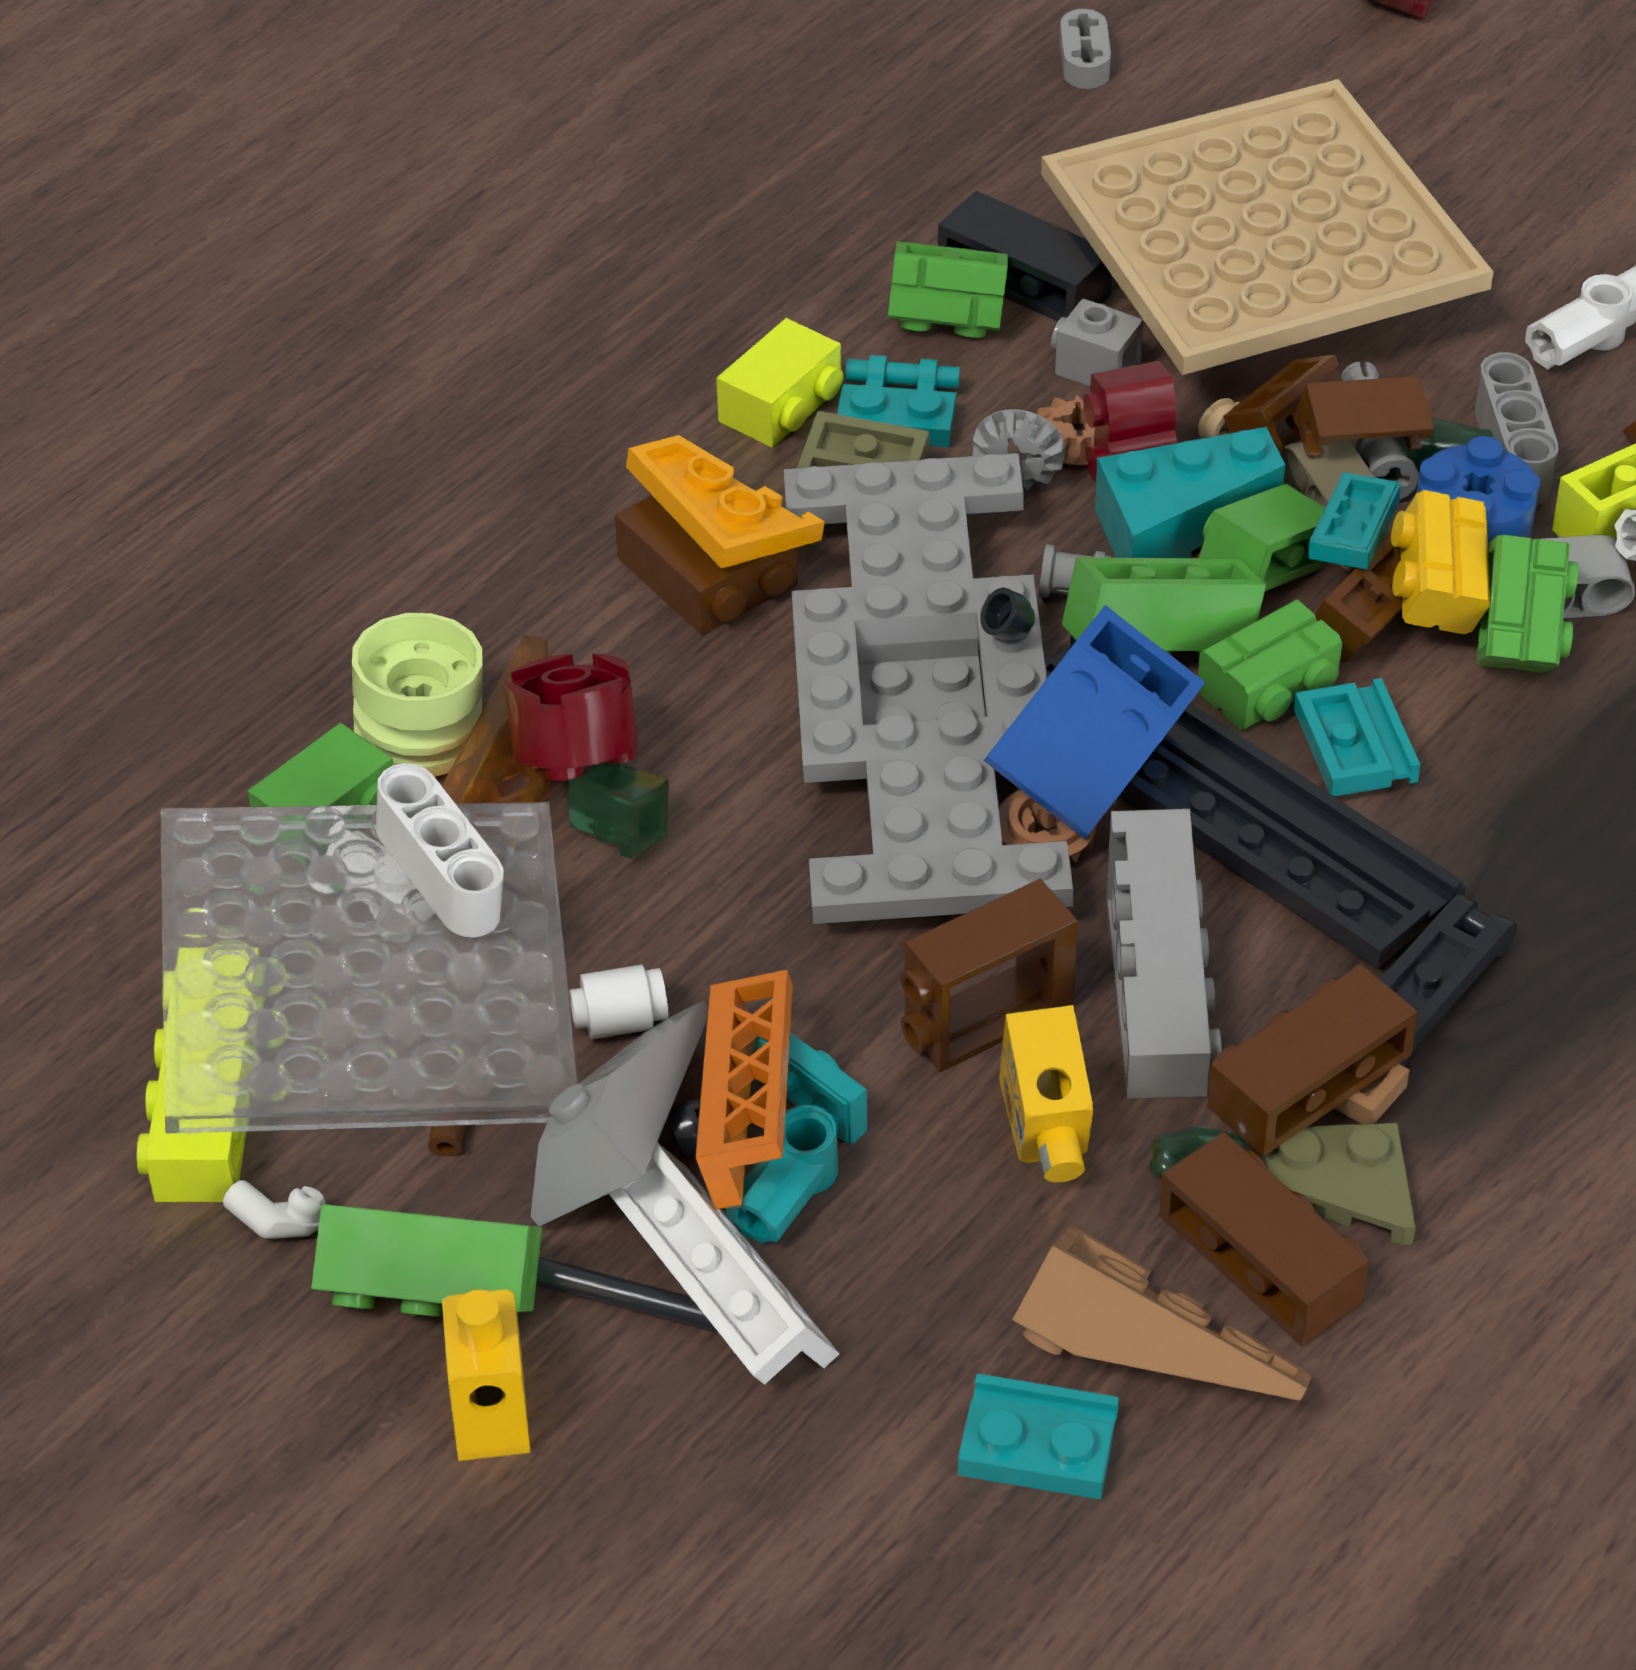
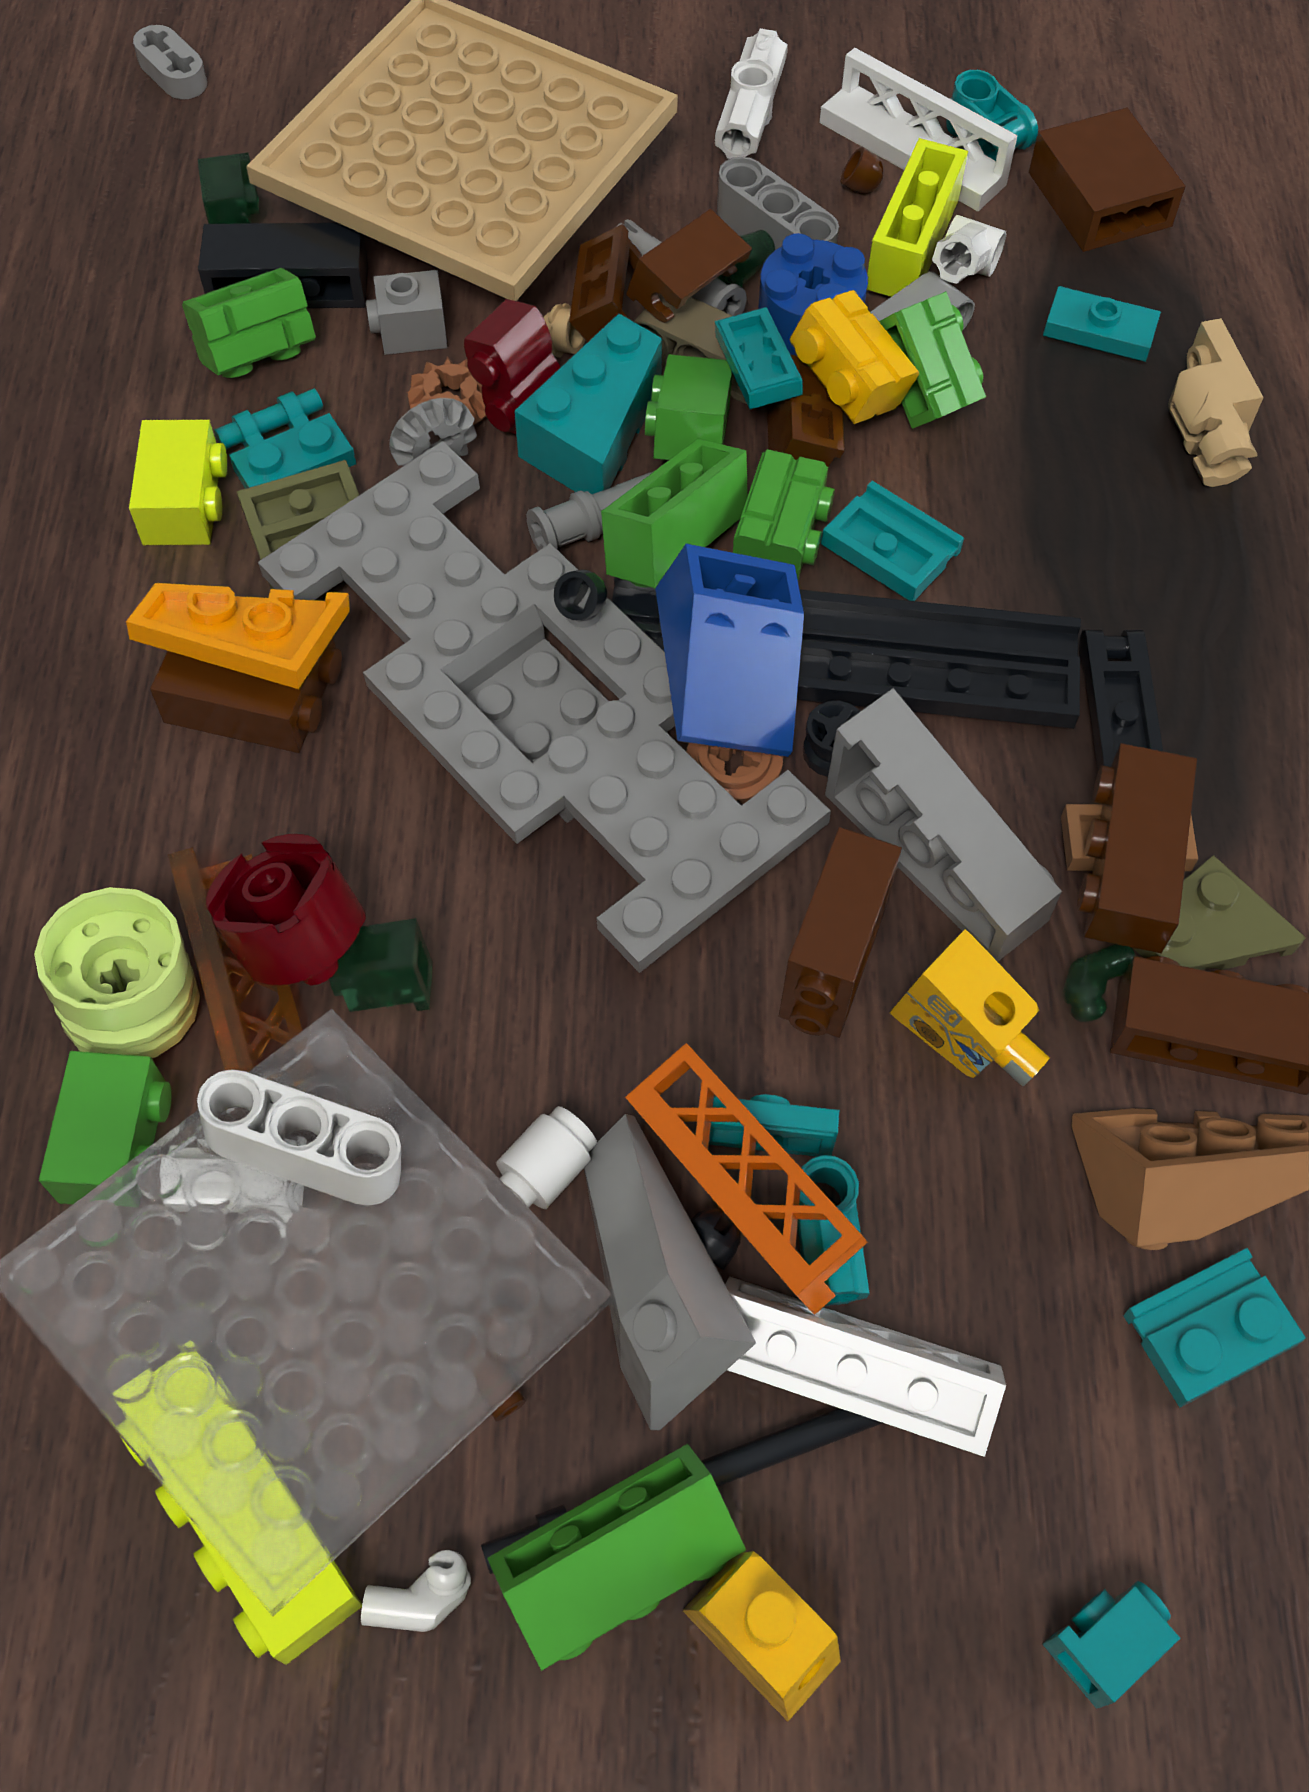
camera: 40 degrees left, 15 degrees up
(736, 1556) = (1115, 1642): none -> teal brick
(1019, 178) = (227, 189): none -> clear green brick

